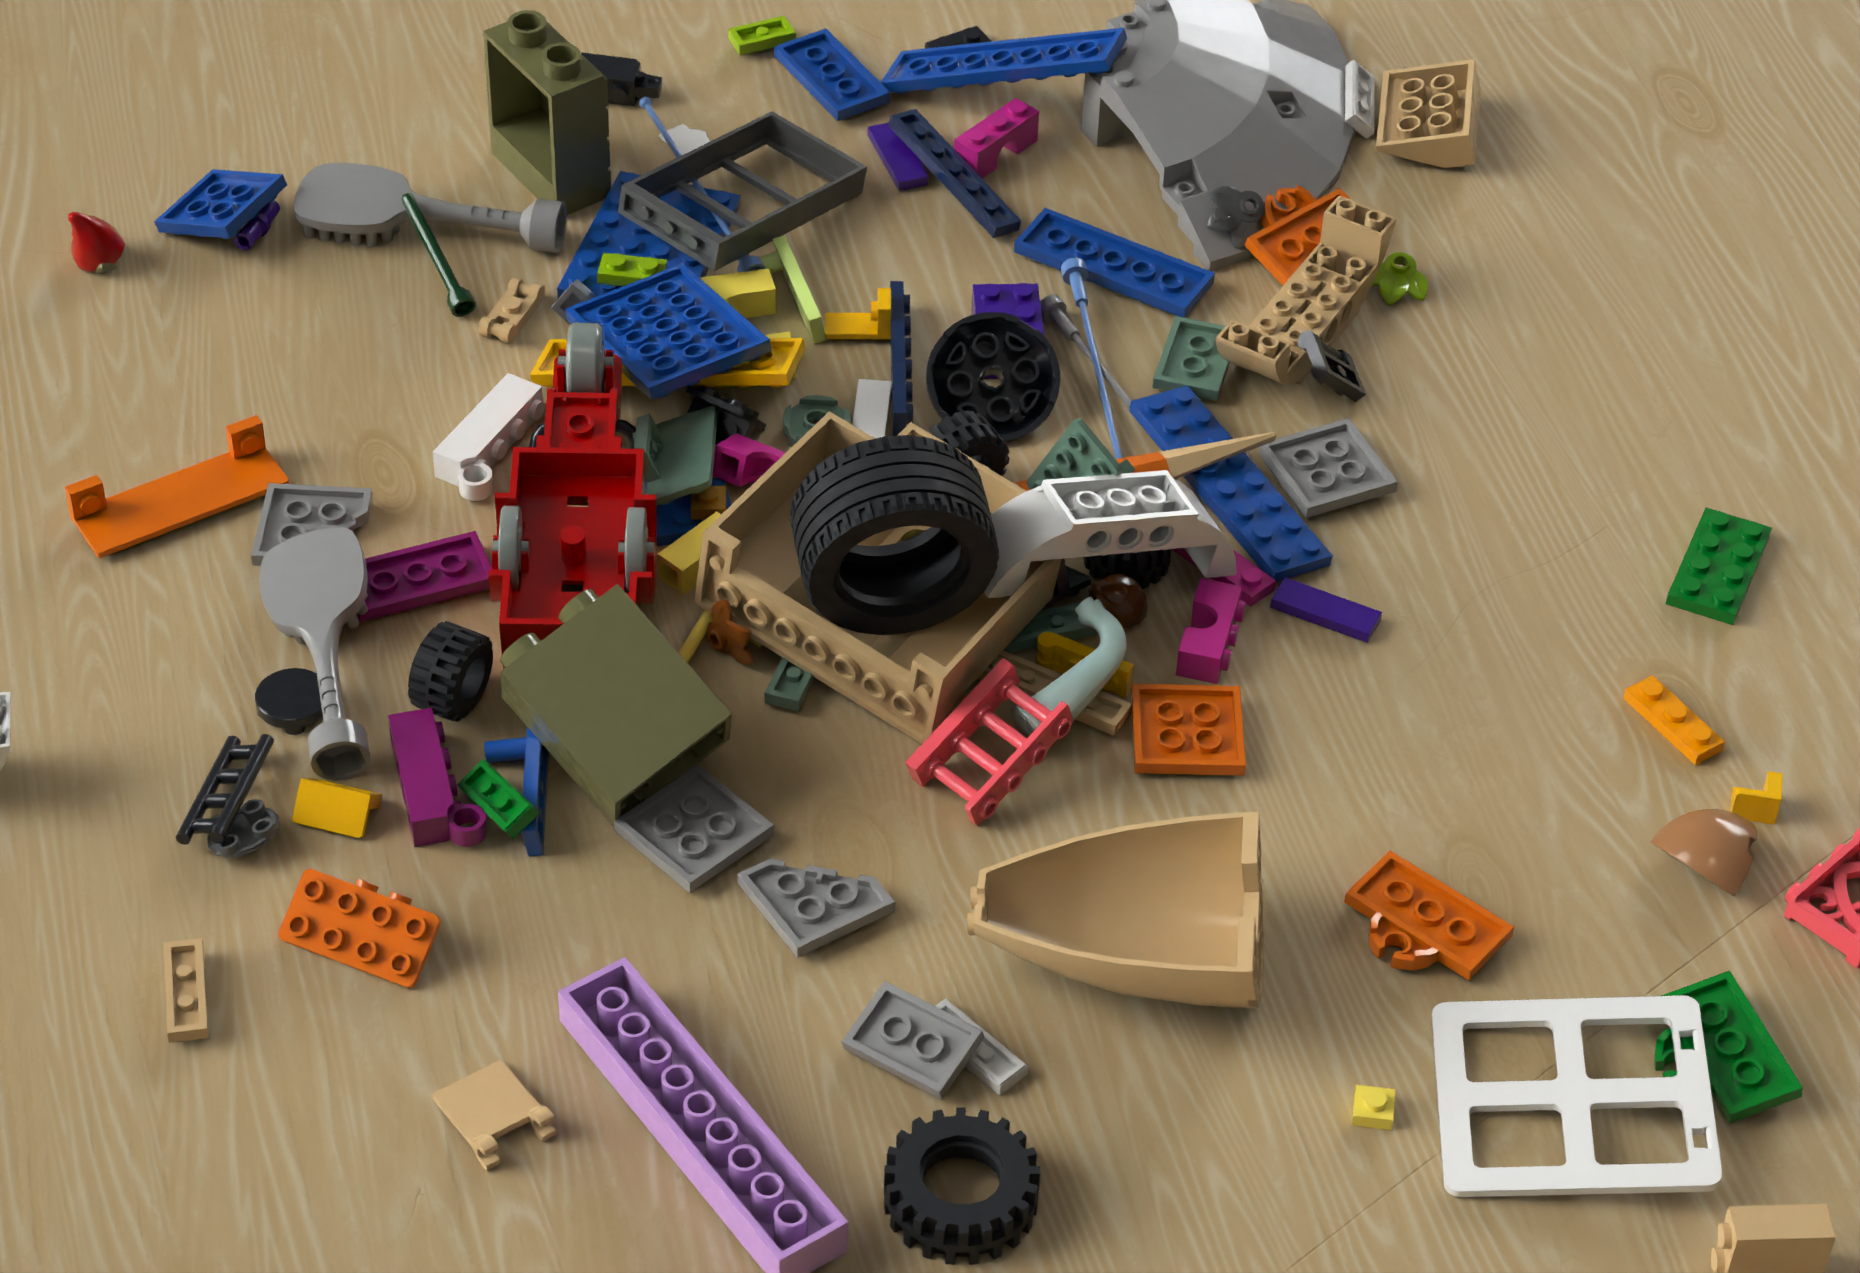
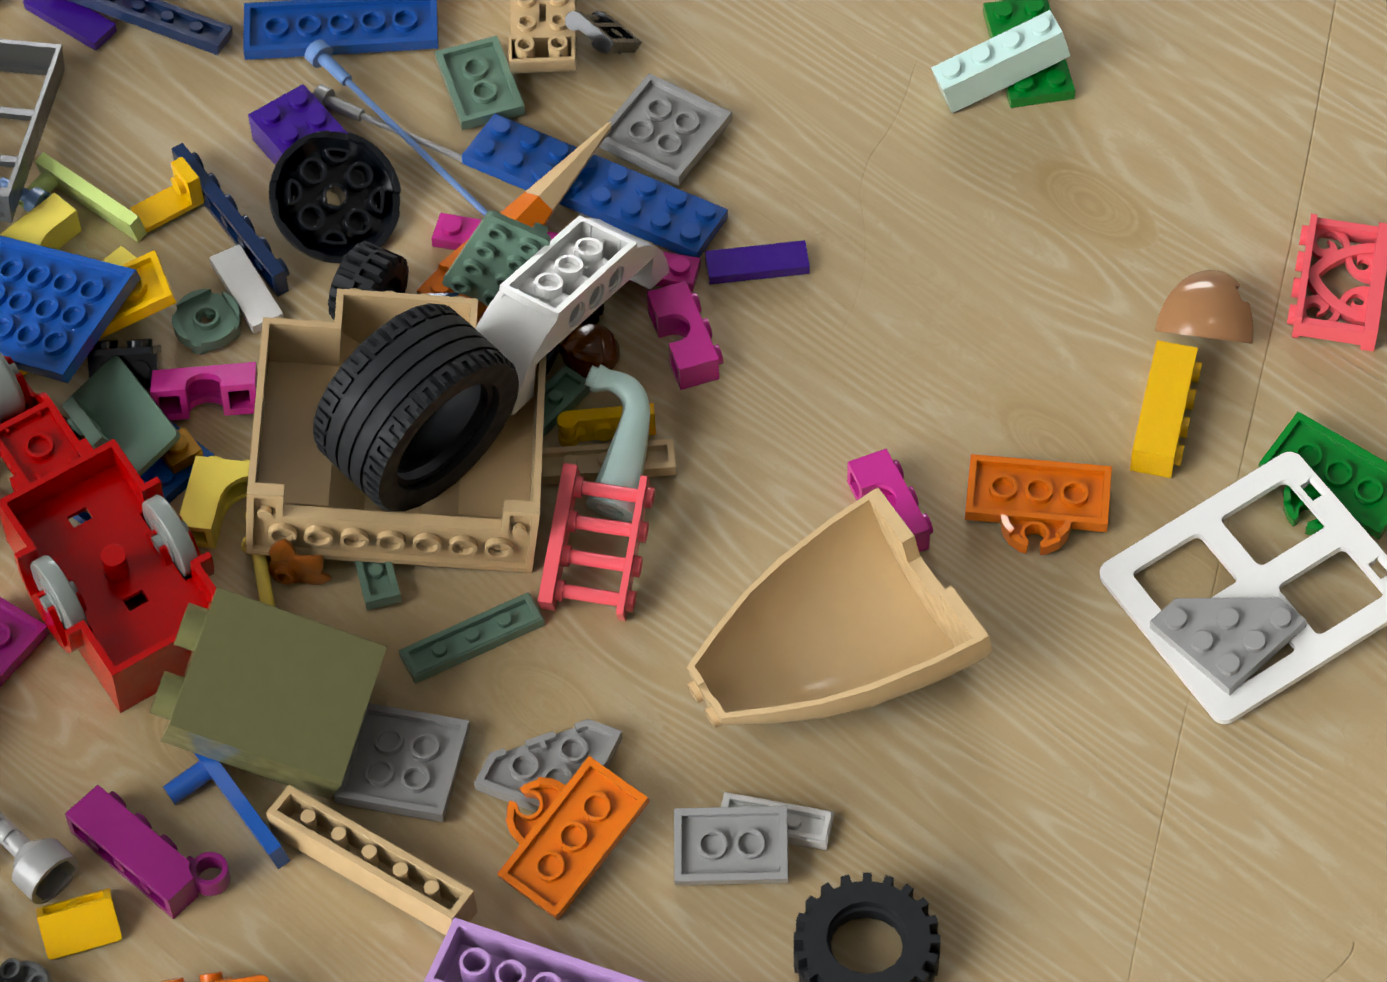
camera: 30 degrees left, 10 degrees up
(450, 671) = (89, 741): black tyre -> none
(498, 798) = (222, 834): green tile -> none
(599, 881) = (370, 860): none -> tan brick
(779, 952) = (568, 834): none -> orange plate
(833, 768) = (471, 637): none -> sand green tile
(1187, 729) = (732, 436): orange plate -> none
(1285, 830) = (883, 472): none -> dark pink arch
(1373, 1107) = (1116, 685): light yellow plate -> none
(1509, 1119) = (1228, 635): none -> light grey plate
(1604, 907) = (1164, 409): none -> yellow brick
(1674, 720) = (1093, 210): light orange plate -> none
(1676, 553) = (1001, 61): none -> light aqua brick
(1758, 804) = (1208, 249): yellow panel -> none

